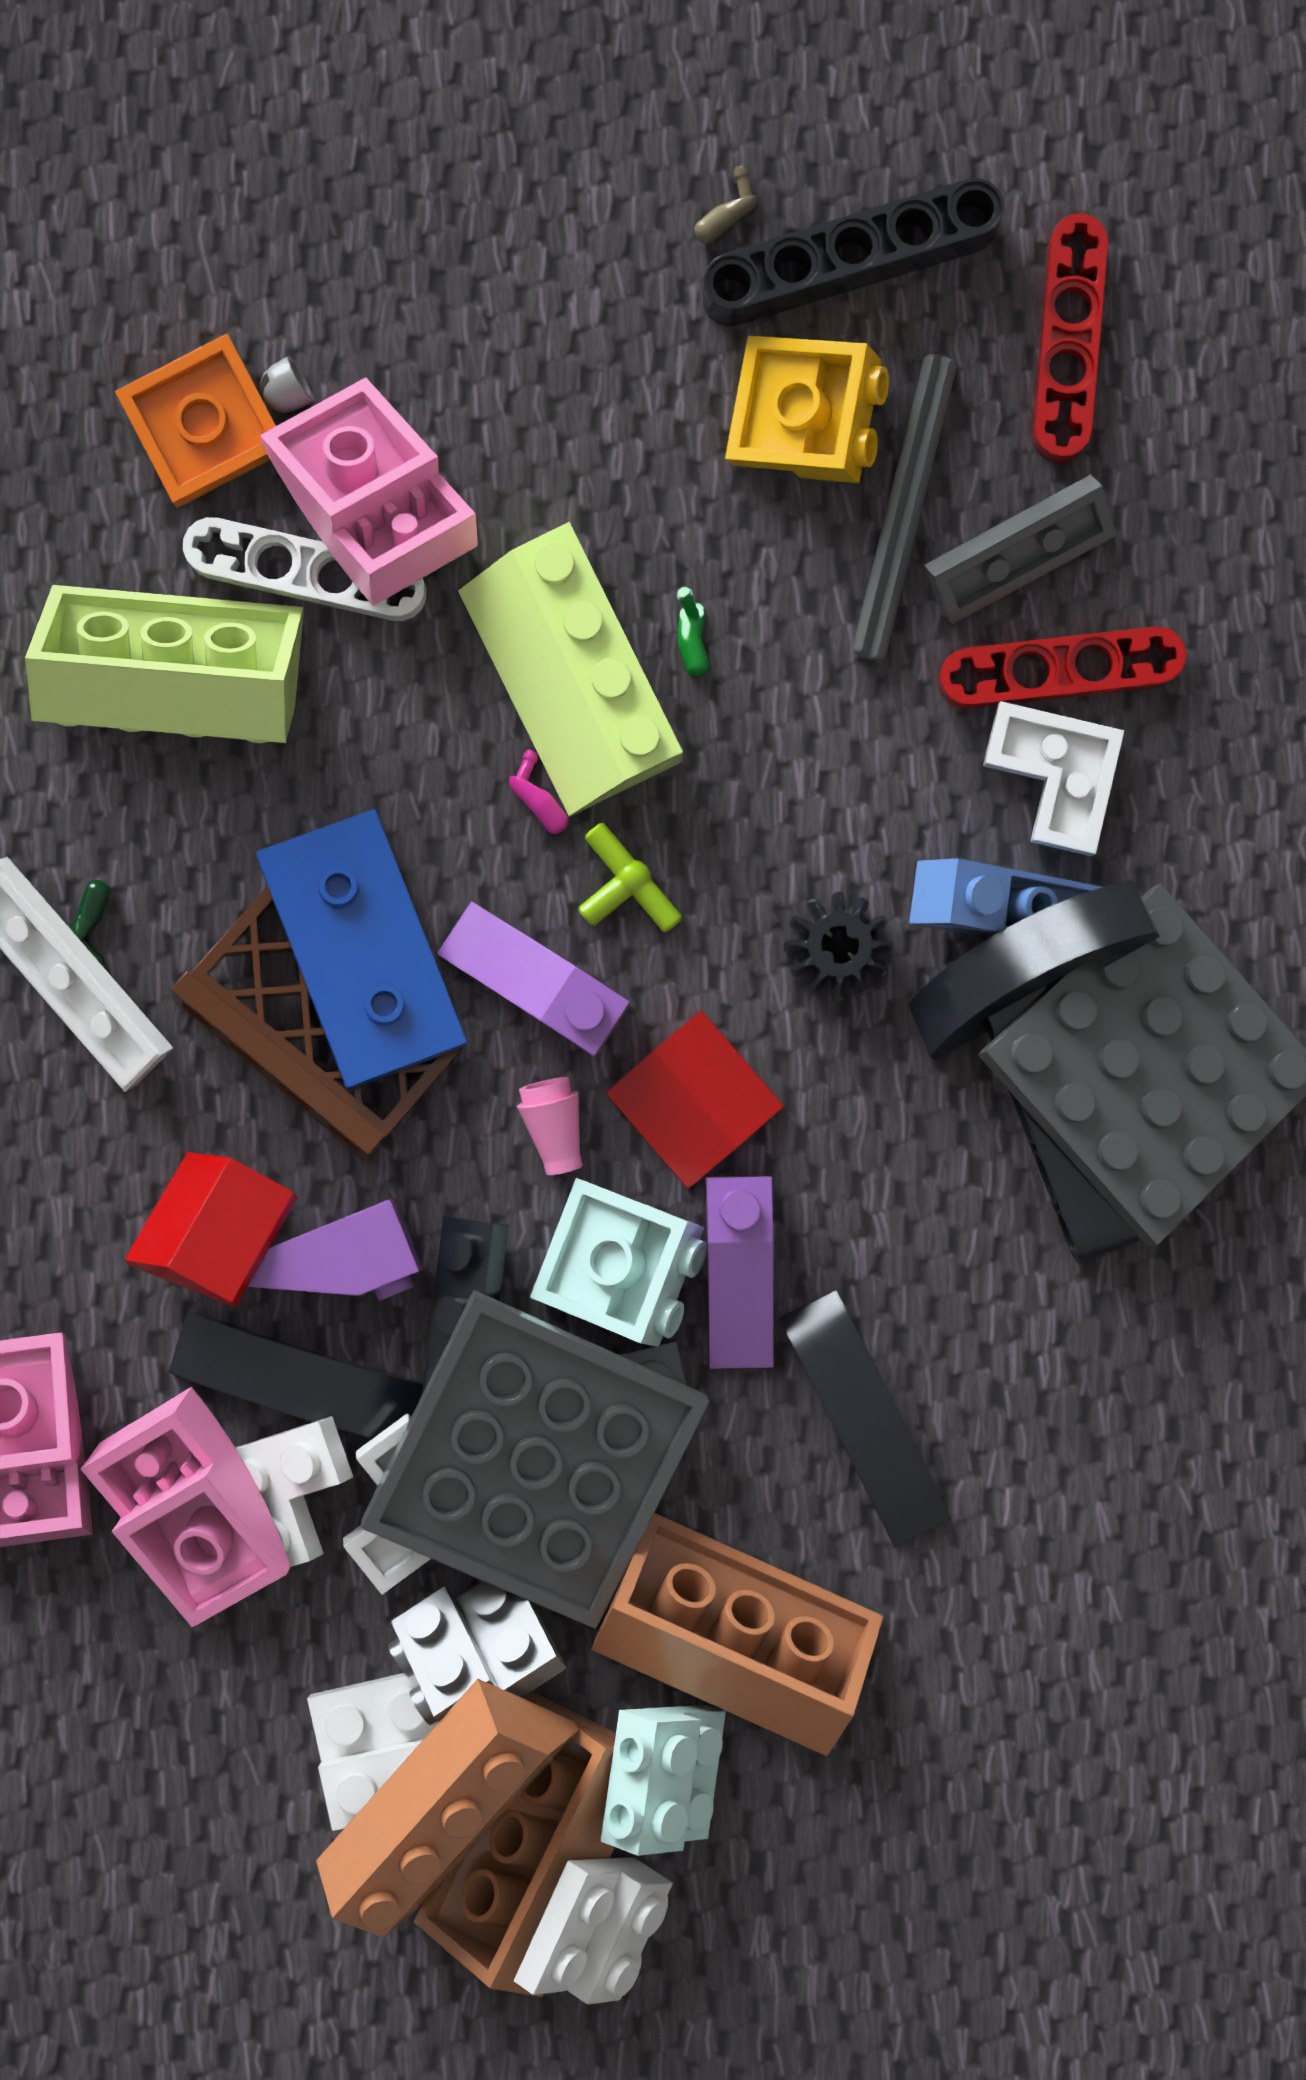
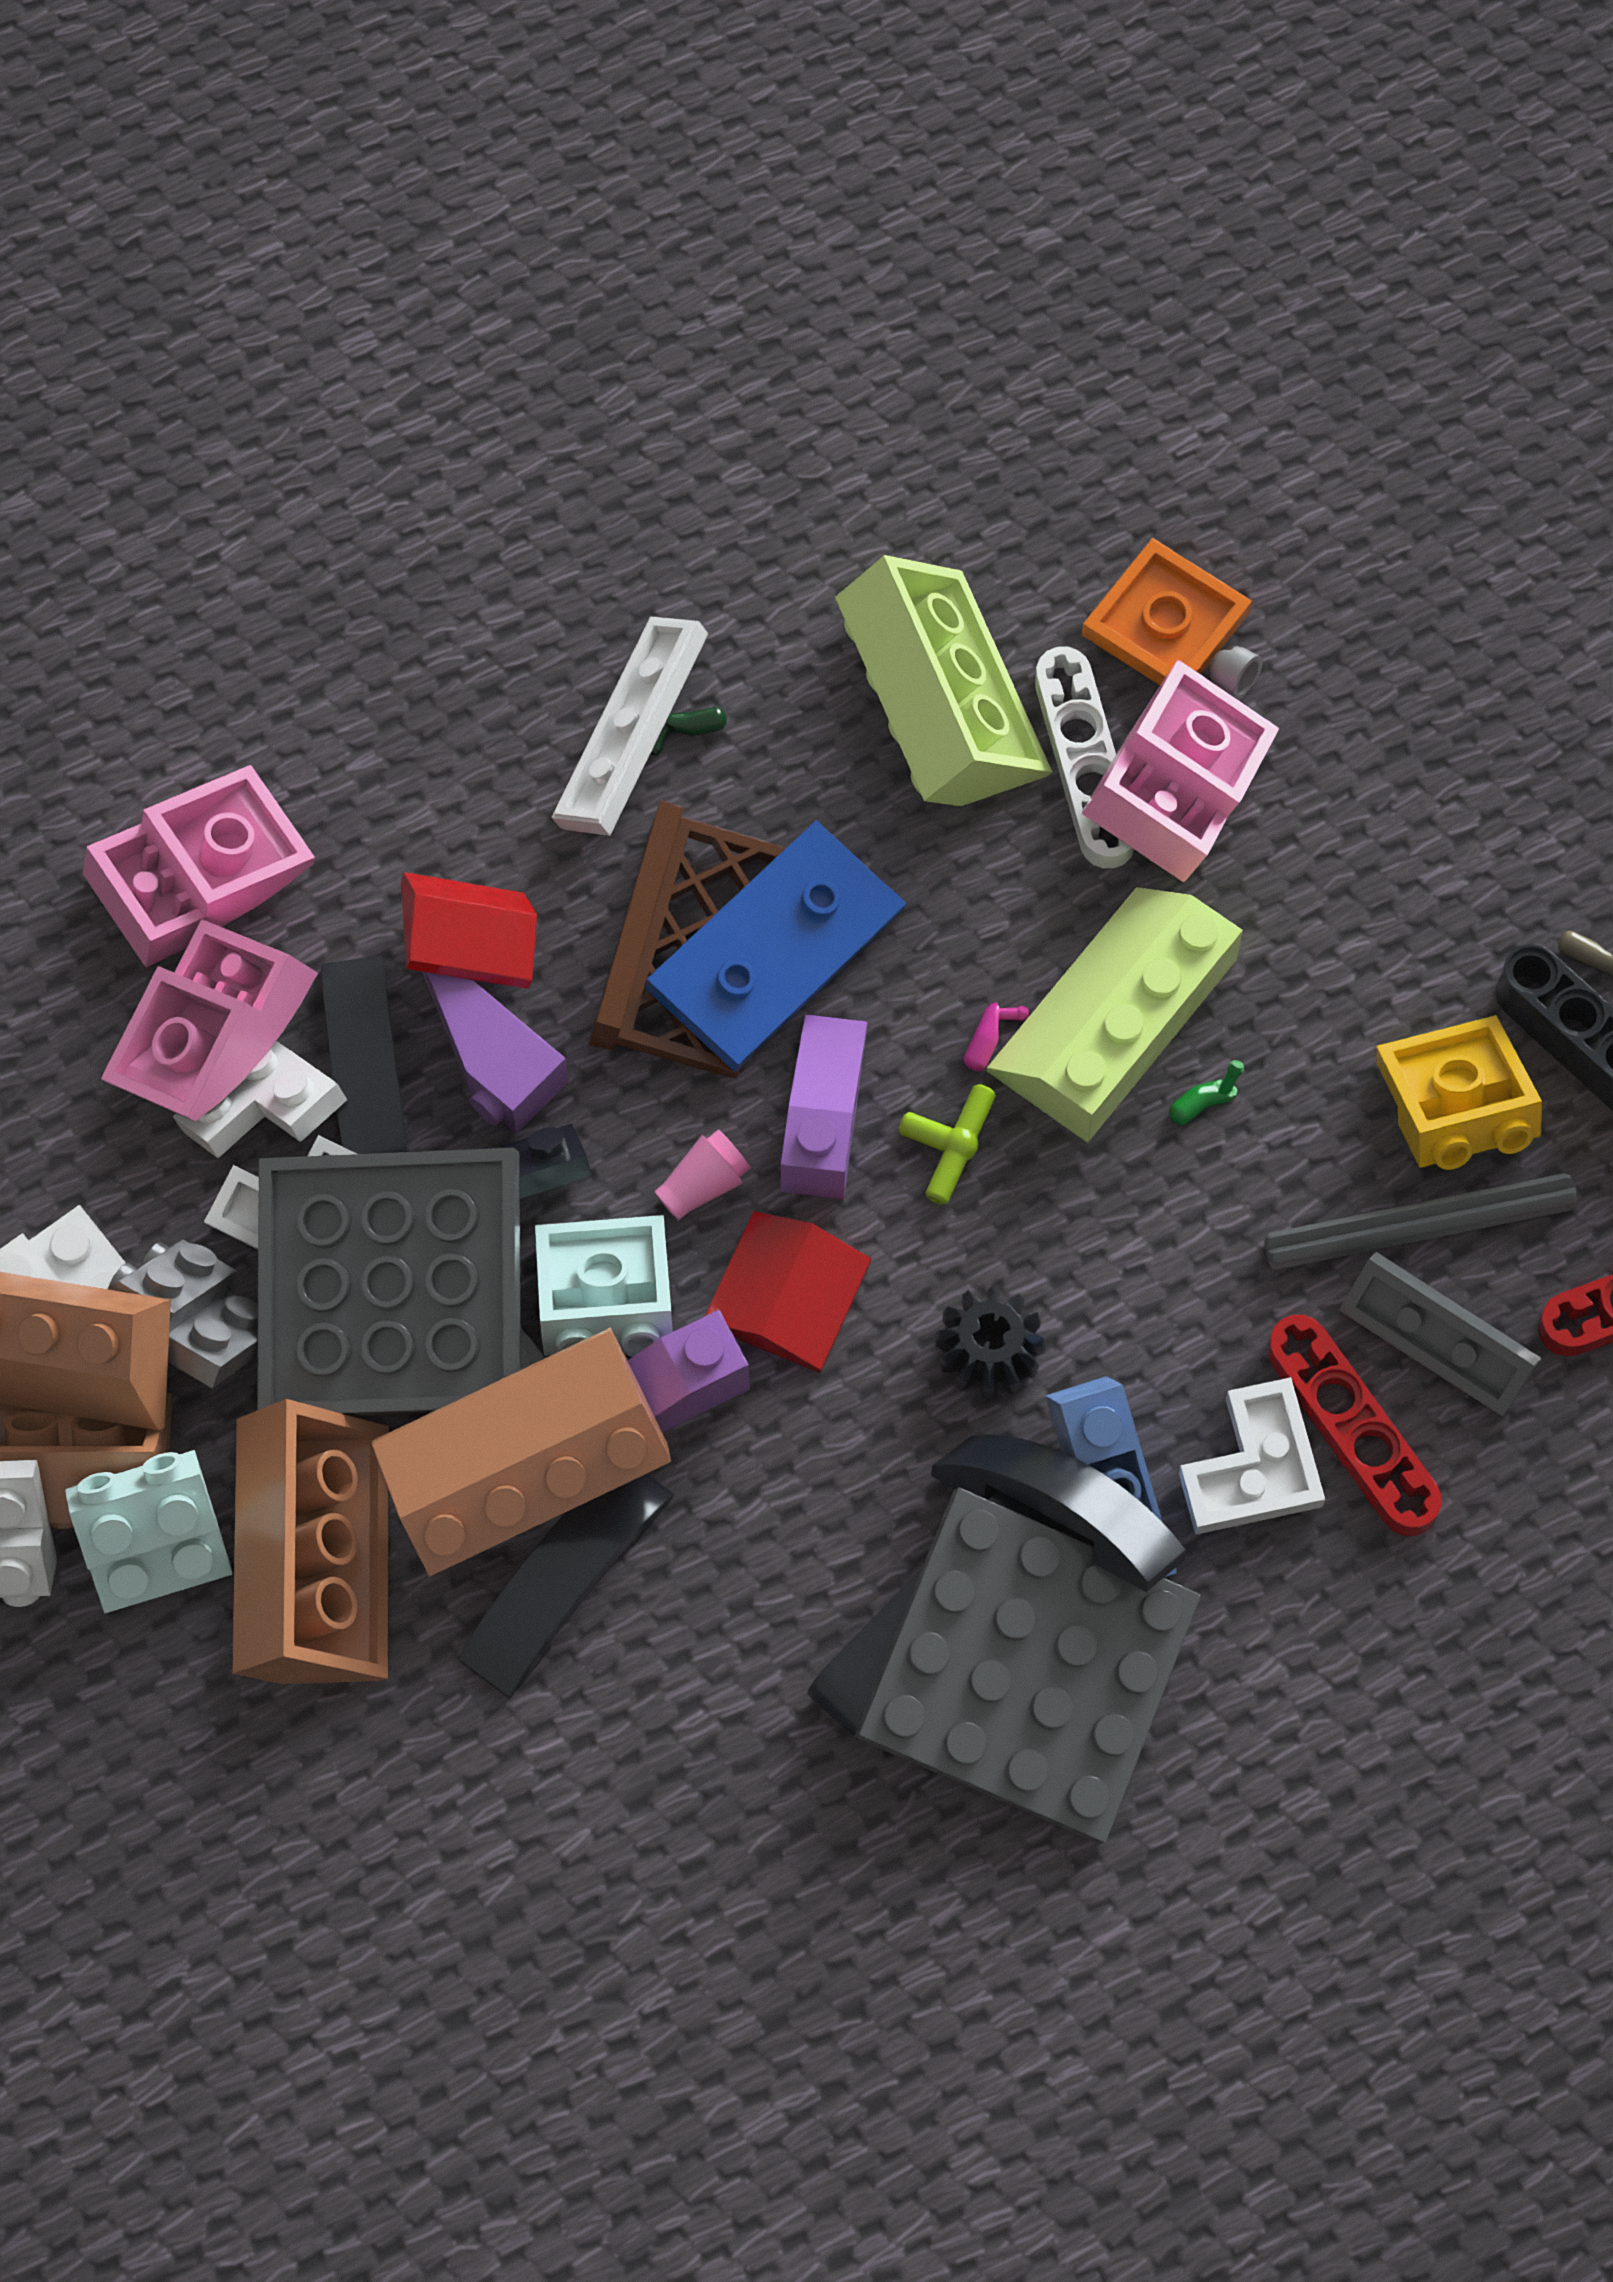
camera: 65 degrees right, 20 degrees down
(759, 1417) = (520, 1452): none -> nougat slope

